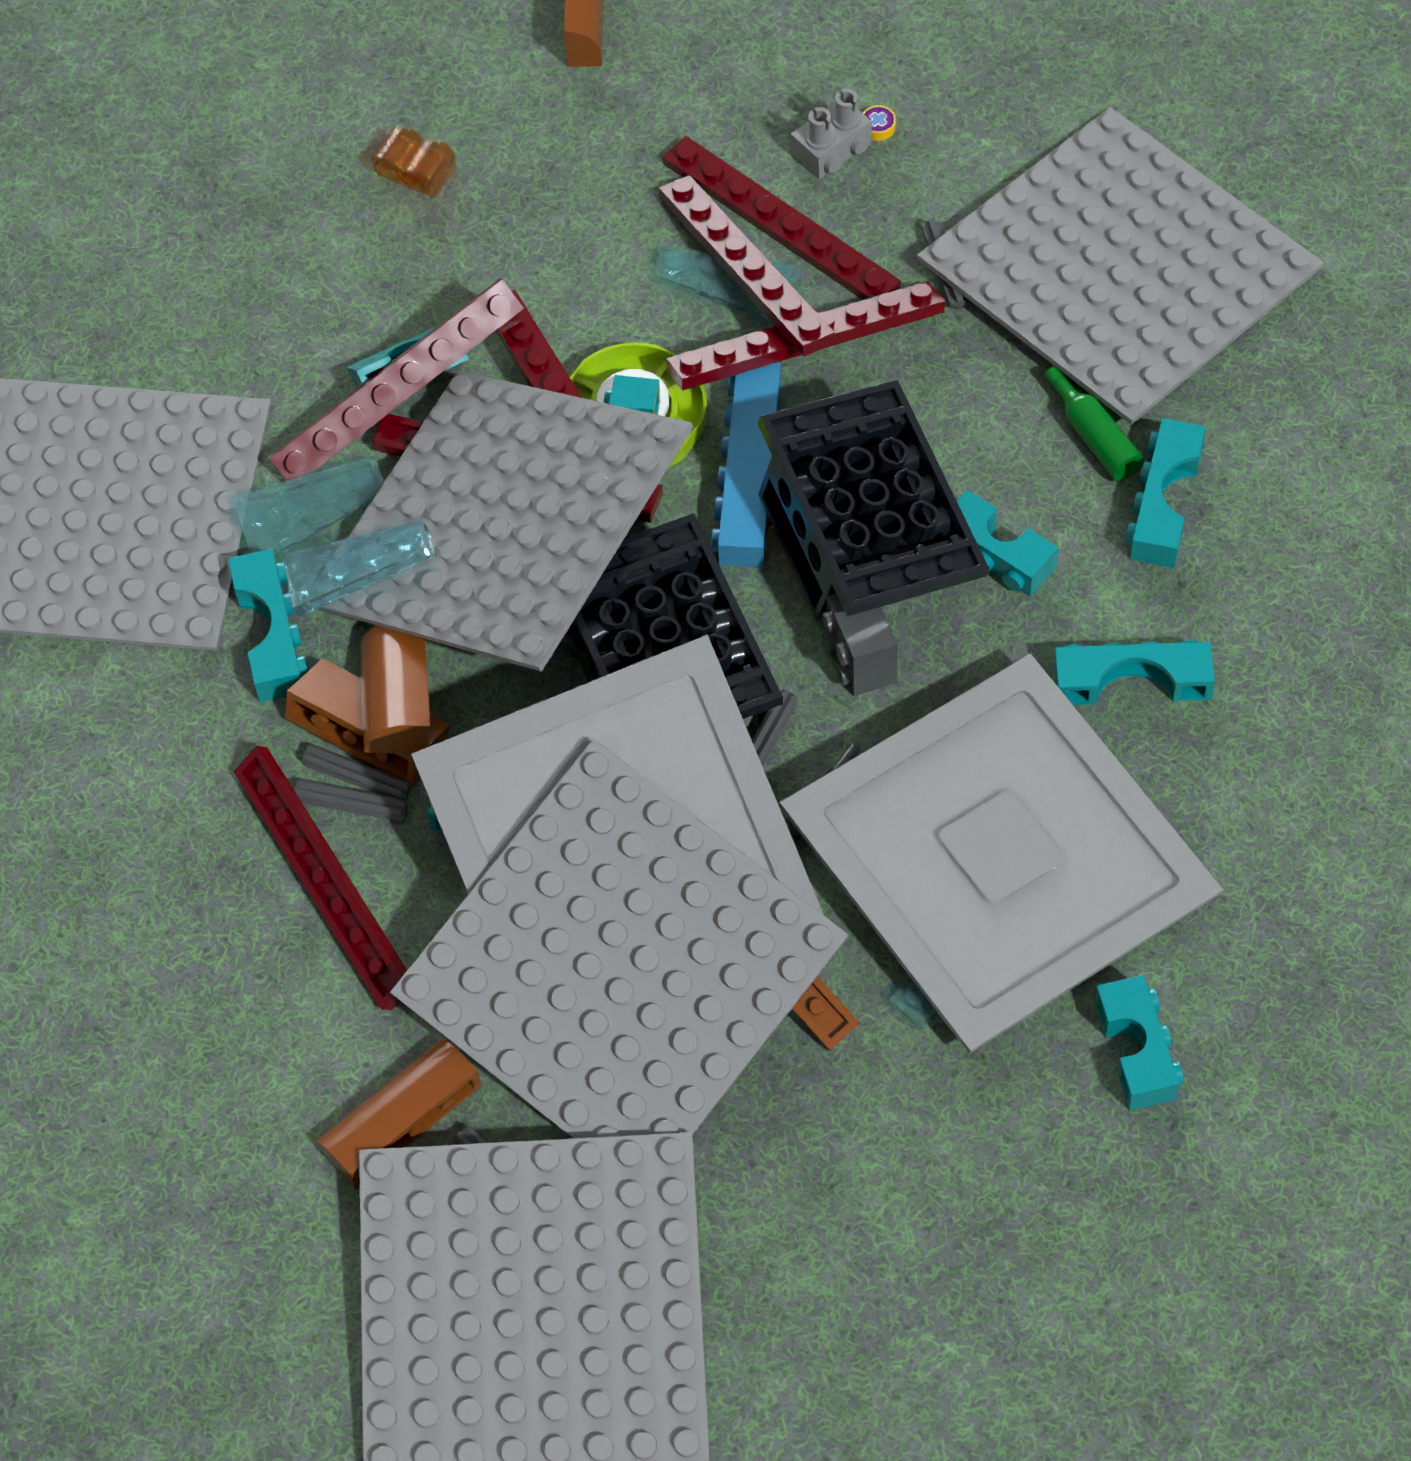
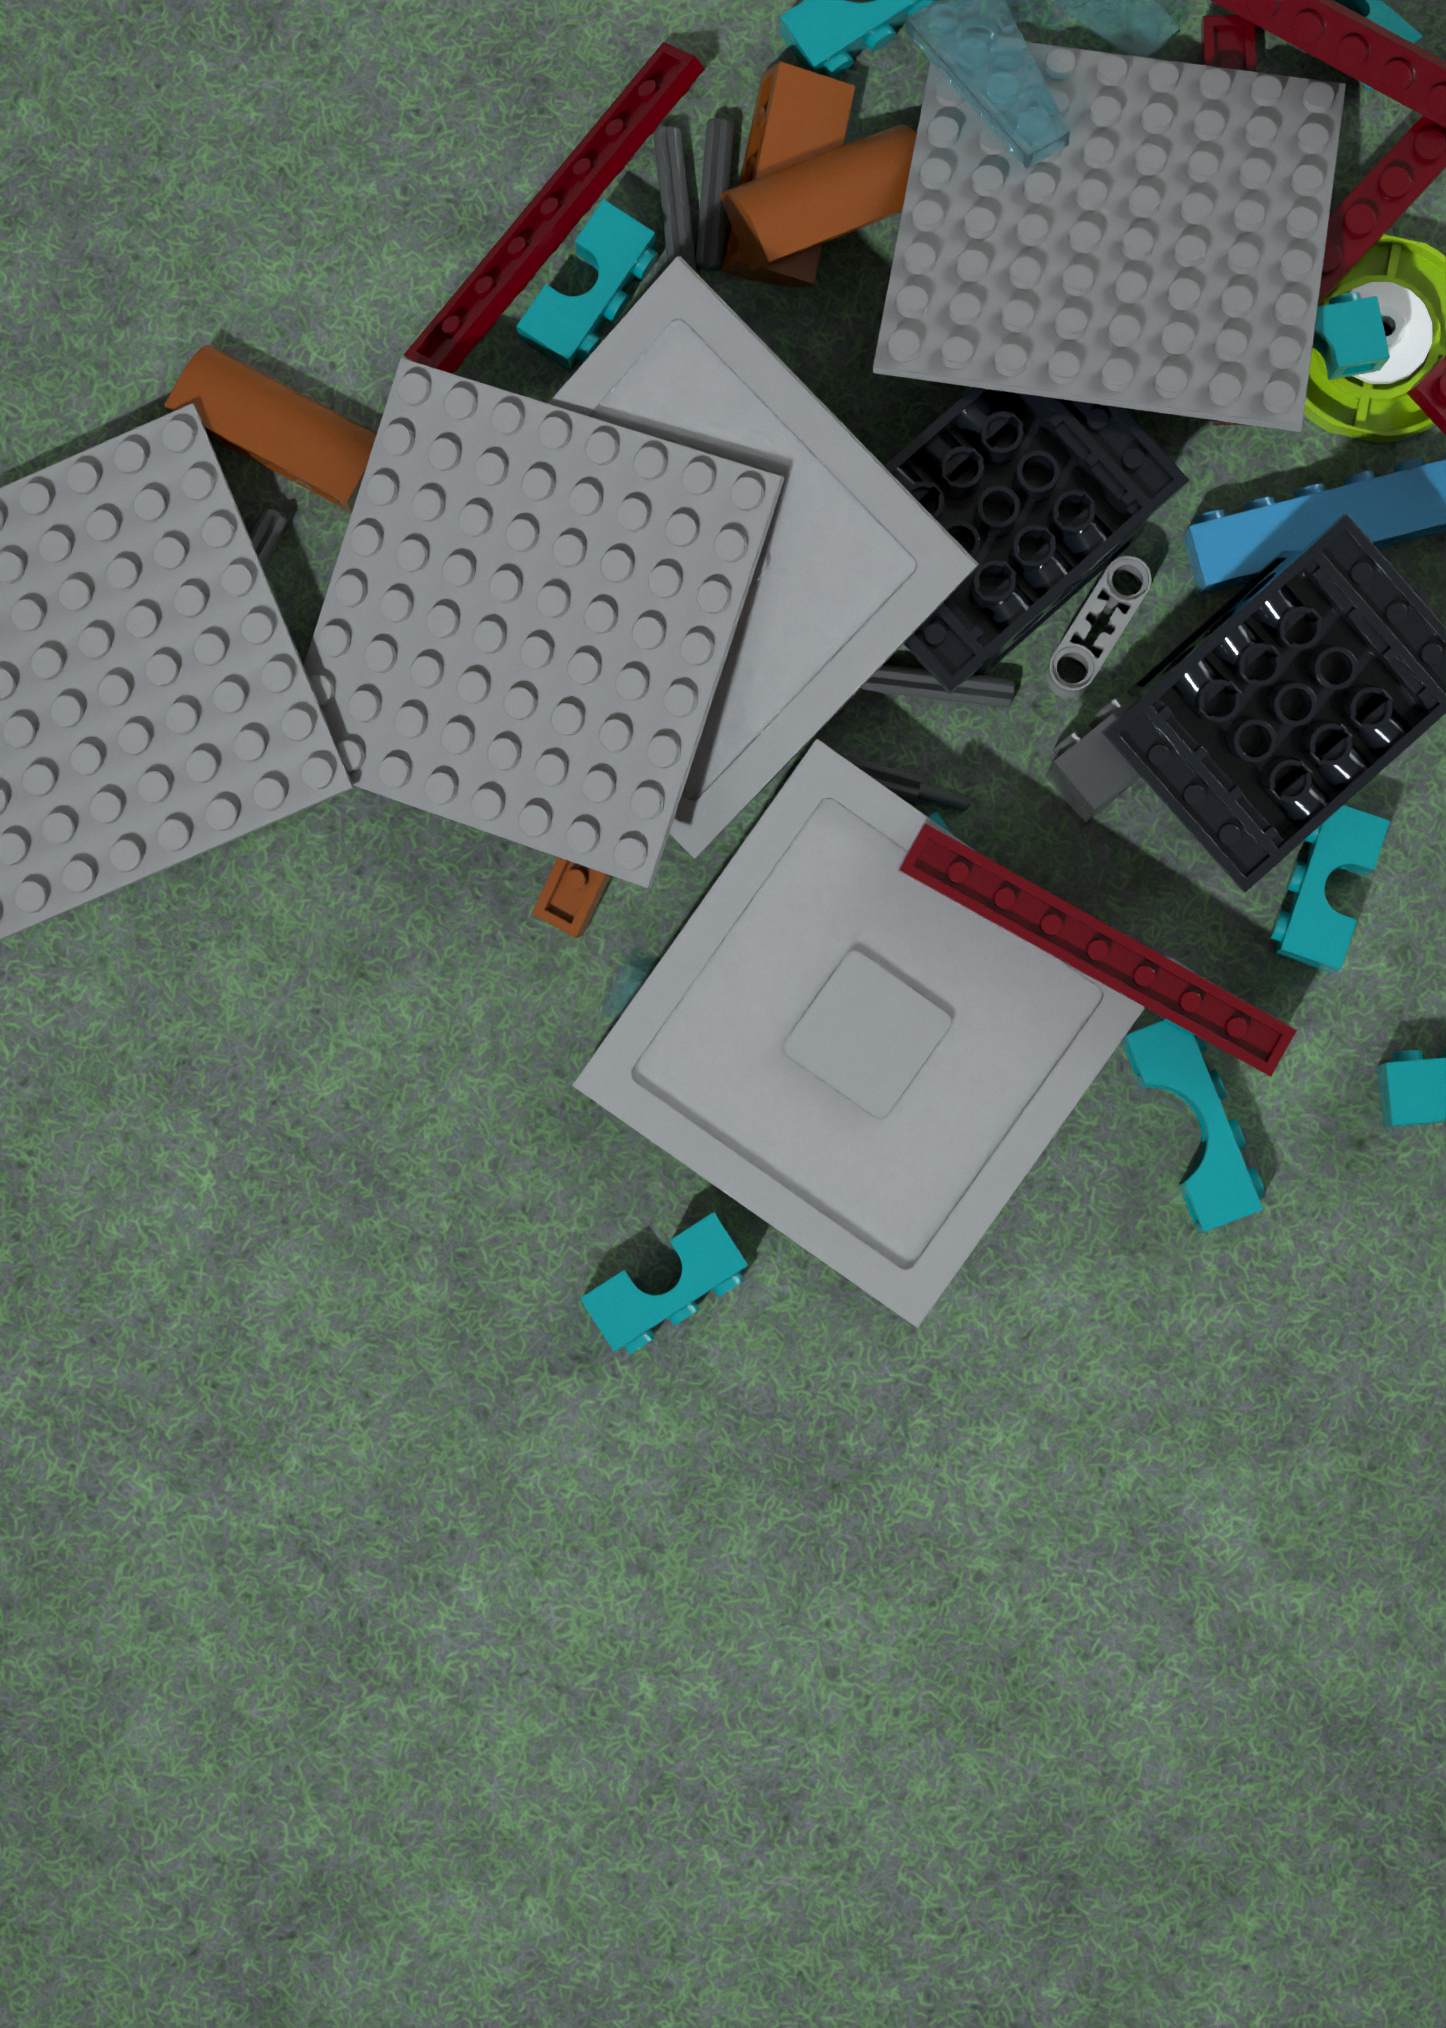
camera: 65 degrees right, 25 degrees up
(371, 844) = (567, 325): none -> teal arch
(784, 634) = (1089, 614): none -> light grey beam
(992, 679) = (1097, 949): none -> dark red plate

